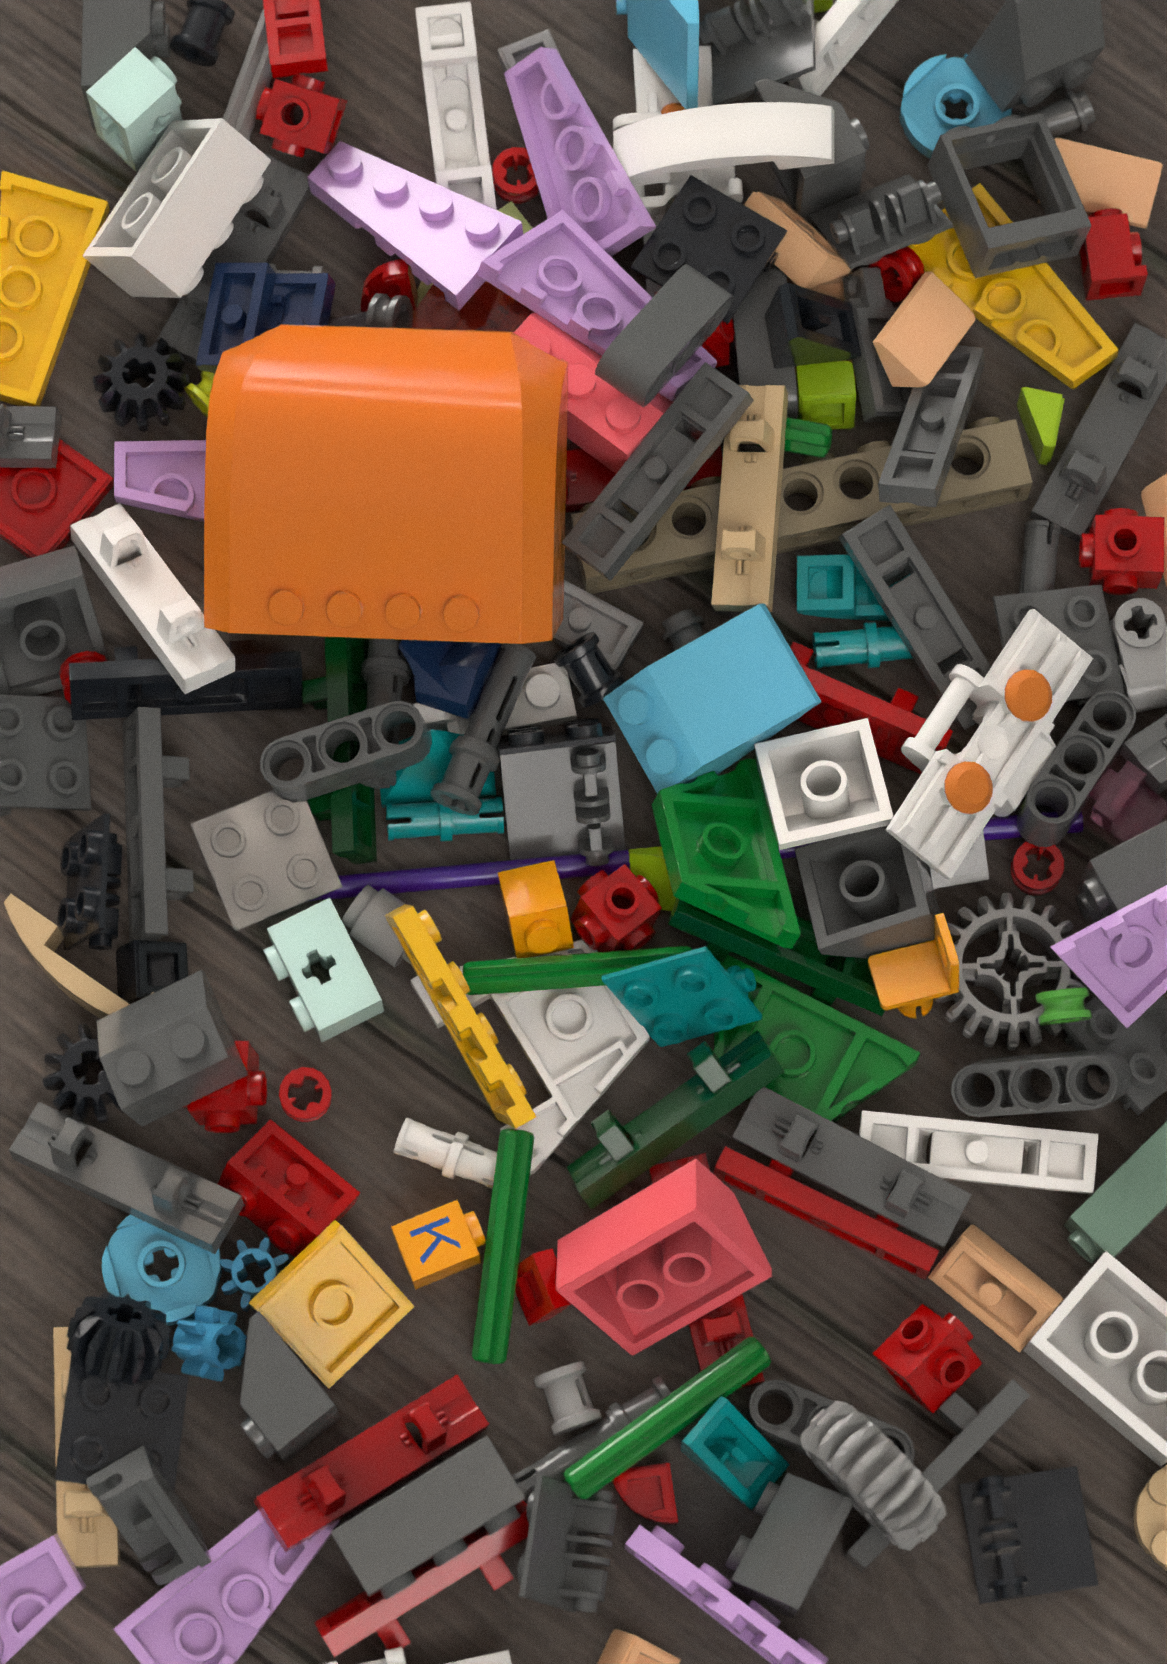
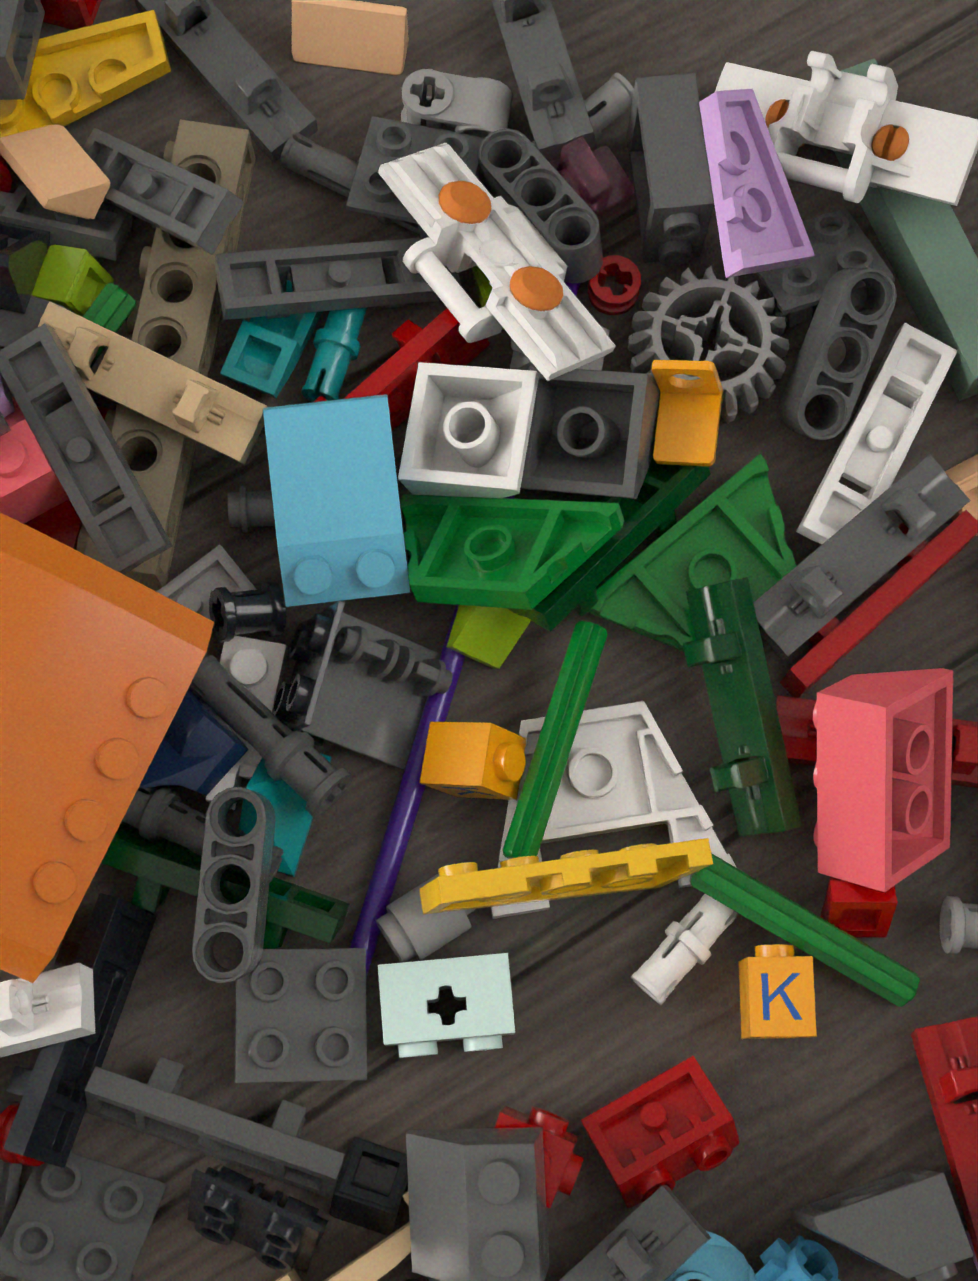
camera: 70 degrees left, 0 degrees up
(239, 1272) = (755, 1214): dark azure gear -> none
(296, 1079) = (585, 1070): red bush -> none
(331, 1304) = (803, 1133): yellow tile -> none
(440, 821) = (335, 825): teal pin -> none
(616, 911) = (508, 681): red brick -> none
(685, 996) = (629, 644): teal hinge -> none
(1041, 419) = (187, 100): lime slope -> none
(1063, 1006) = (778, 297): bright green bush -> none
(1123, 551) = (350, 82): red brick -> none

